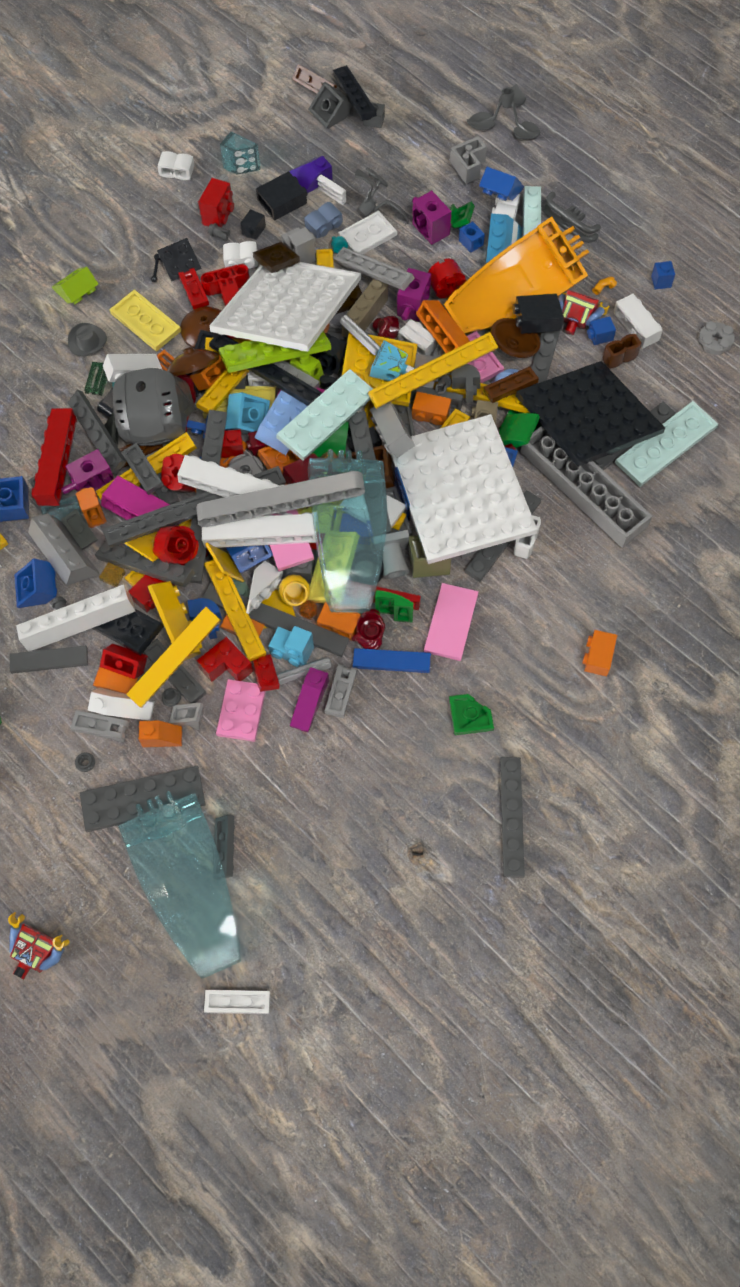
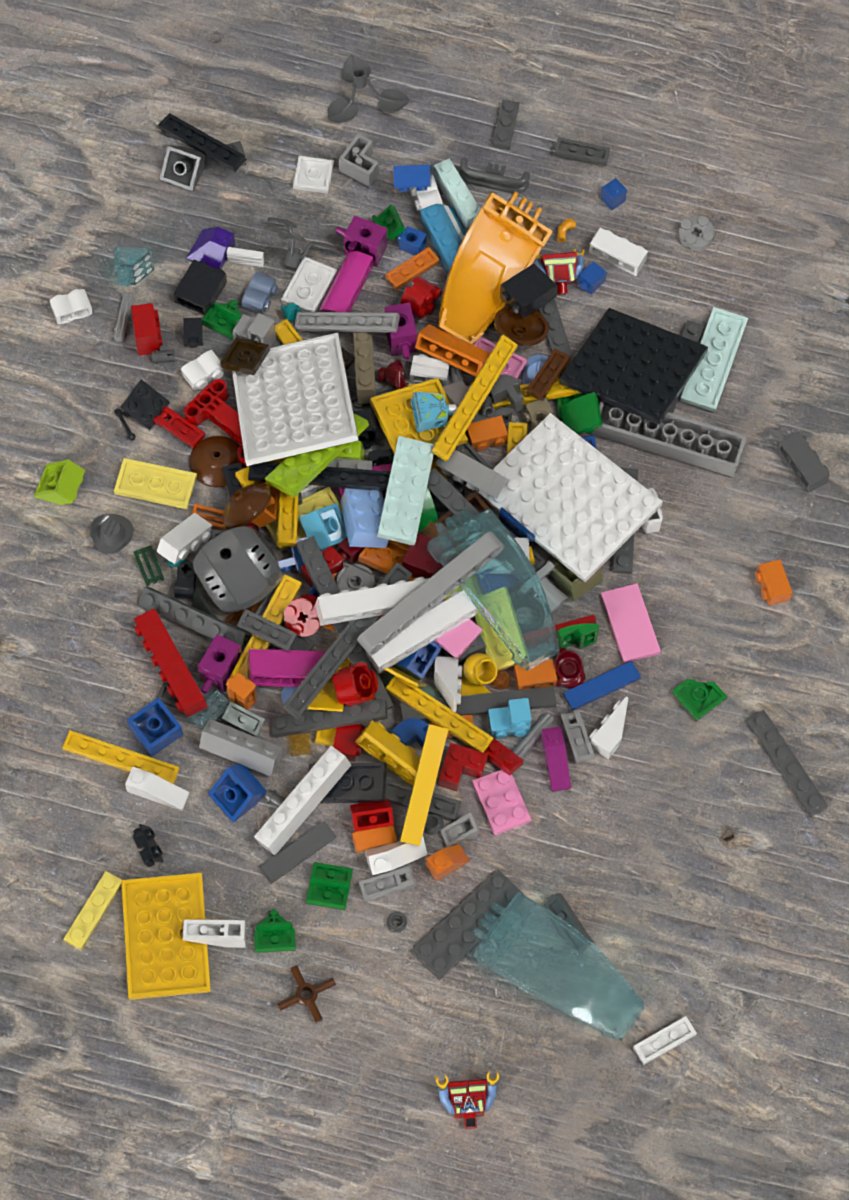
camera: 35 degrees left, 0 degrees up
(53, 701) = (329, 886): none -> green slope
(282, 224) = (223, 318): none -> green slope
(309, 79) = (145, 146): plate -> none
(359, 334) = (384, 396): light grey axle -> none
(370, 704) = (609, 736): none -> white slope
(400, 244) = (347, 283): none -> dark pink brick
(427, 156) = (313, 174): none -> white tile
(462, 256) = (412, 268): none -> orange plate
(607, 187) = (505, 124): none -> dark grey plate
(621, 351) = (623, 290): reddish brown brick -> none
(657, 232) = (582, 151): none -> dark grey plate
(693, 565) = (803, 461): none -> dark grey brick

